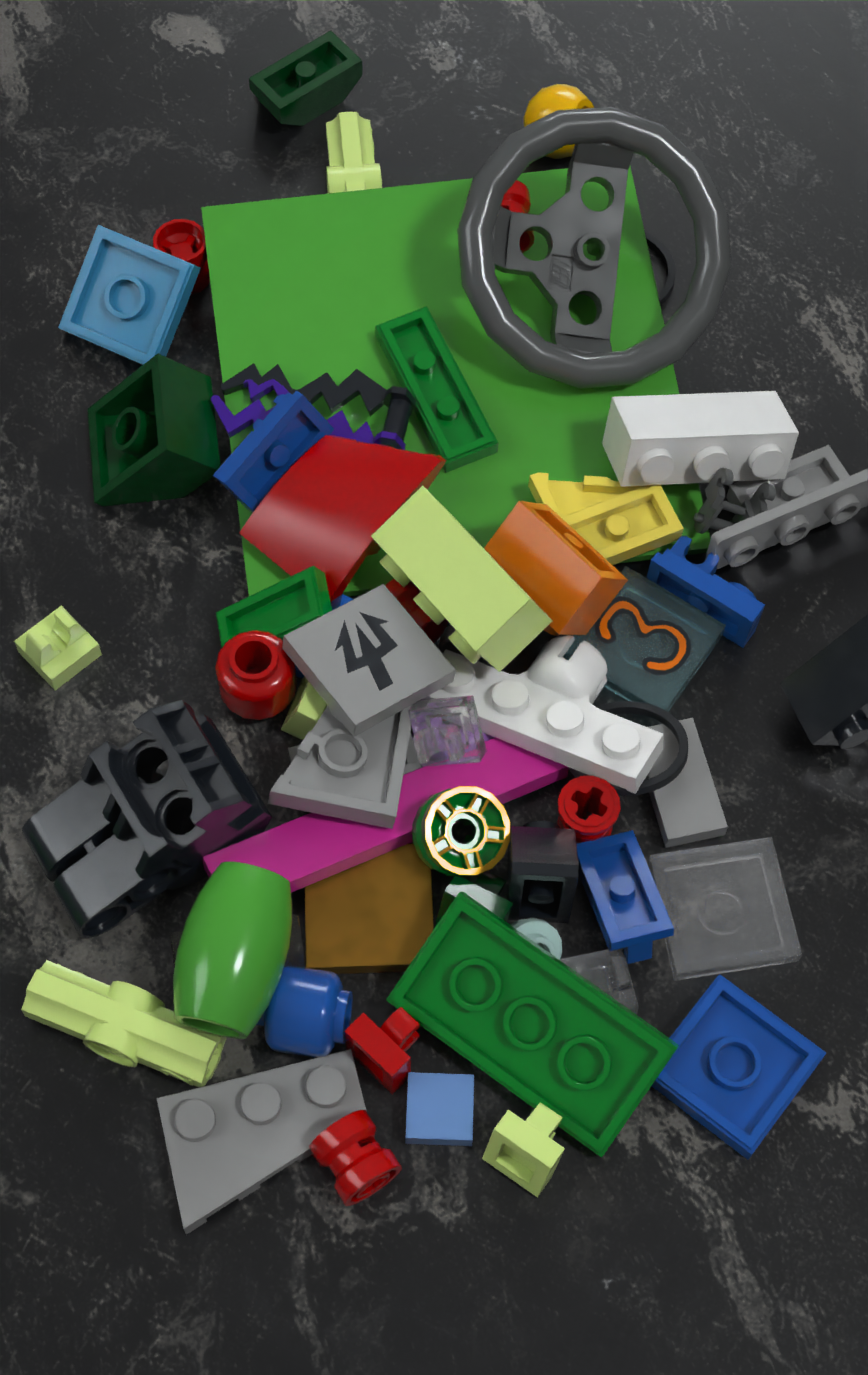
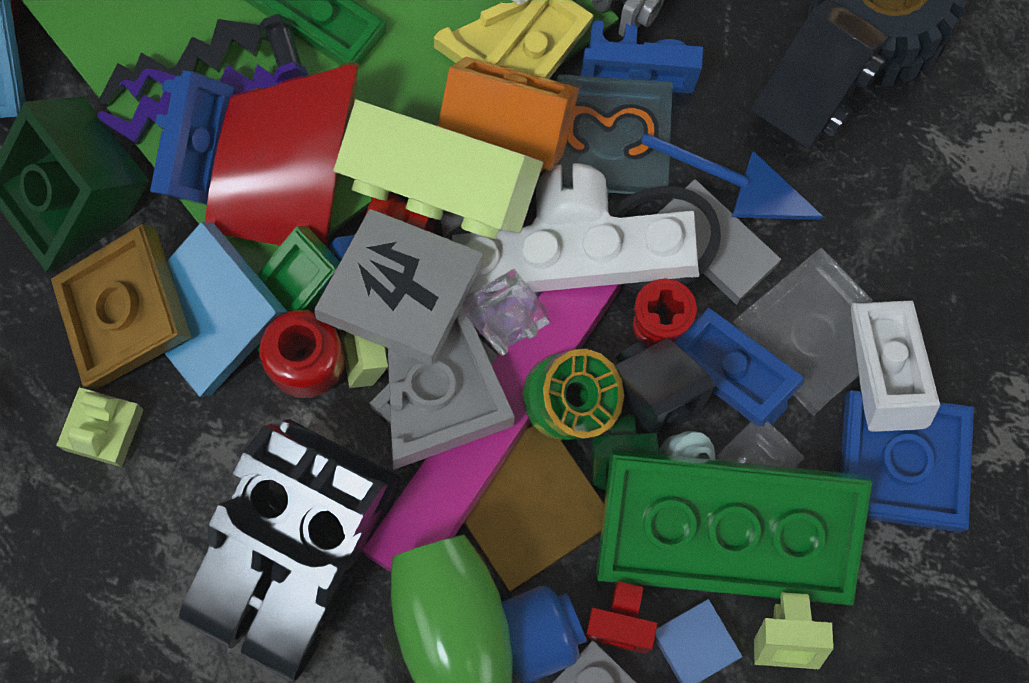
camera: 30 degrees left, 10 degrees up
(133, 559) = (120, 307): none -> pearl gold tile
(200, 597) = (222, 306): none -> dark azure tile
(749, 762) = (761, 191): none -> blue piece
(768, 972) = (893, 367): none -> white slope

